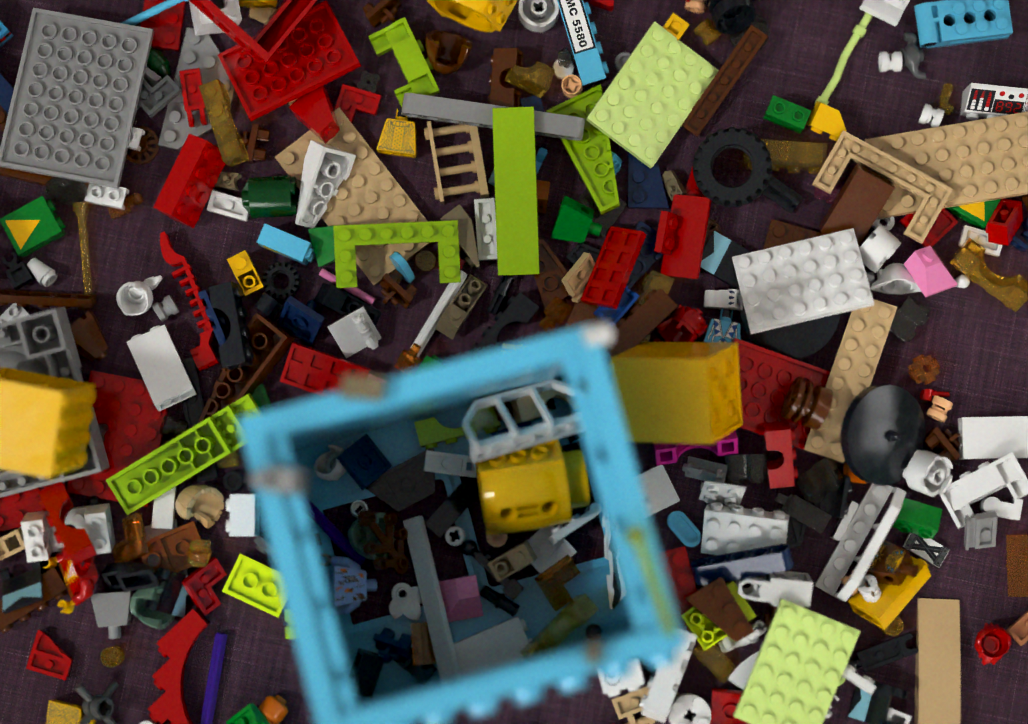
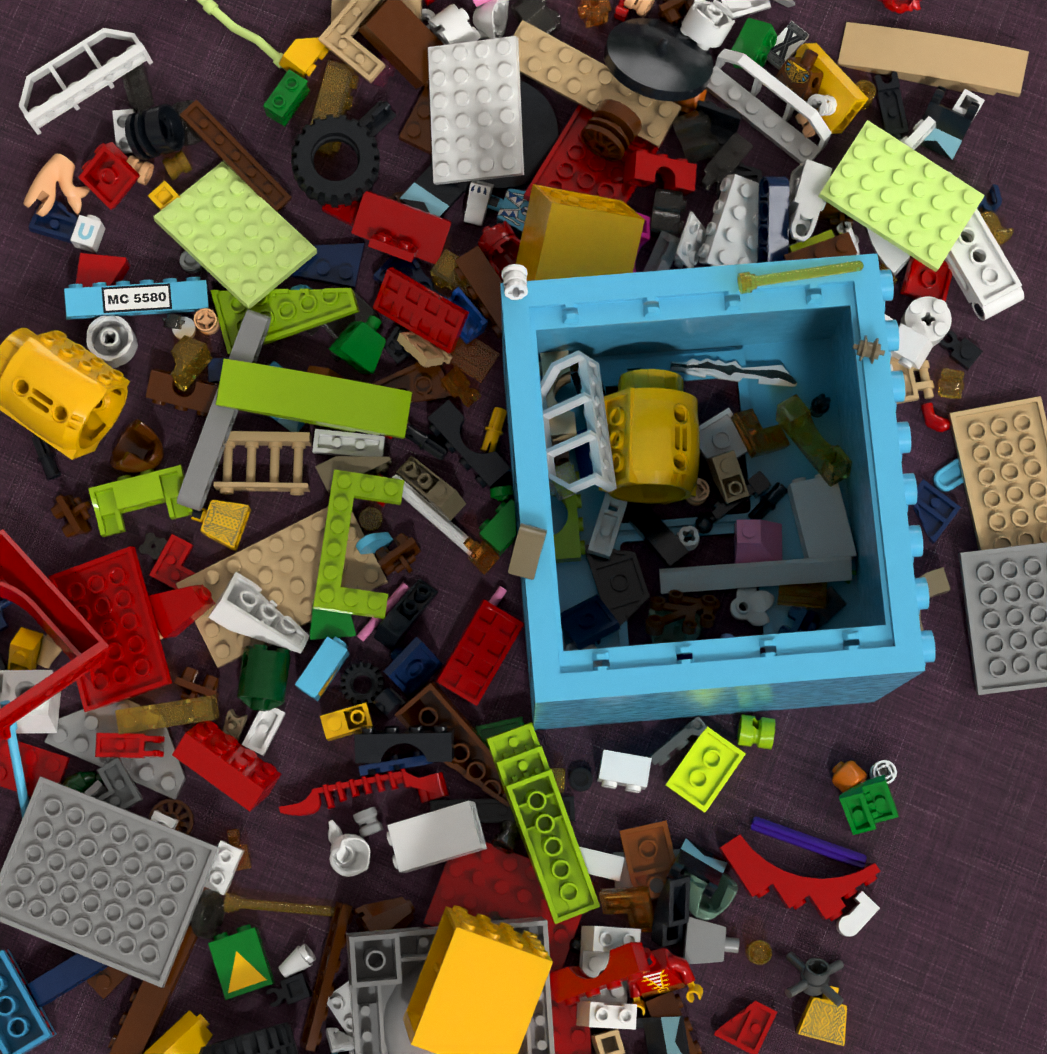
camera: 80 degrees left, 5 degrees down
(199, 553) = (658, 828): clear yellow piece -> none
(200, 583) = (695, 836): red plate -> none
(202, 503) = (601, 819): tan hair -> none
(287, 480) = (620, 649): light grey torso -> none
(355, 332) = (438, 609): white hinge -> none
(355, 505) = (641, 634): white hinge -> none
(576, 522) = (705, 417): white plate -> none
(672, 184) = (339, 233): dark tan piece -> none
(843, 523) = (747, 125): white tile -> none

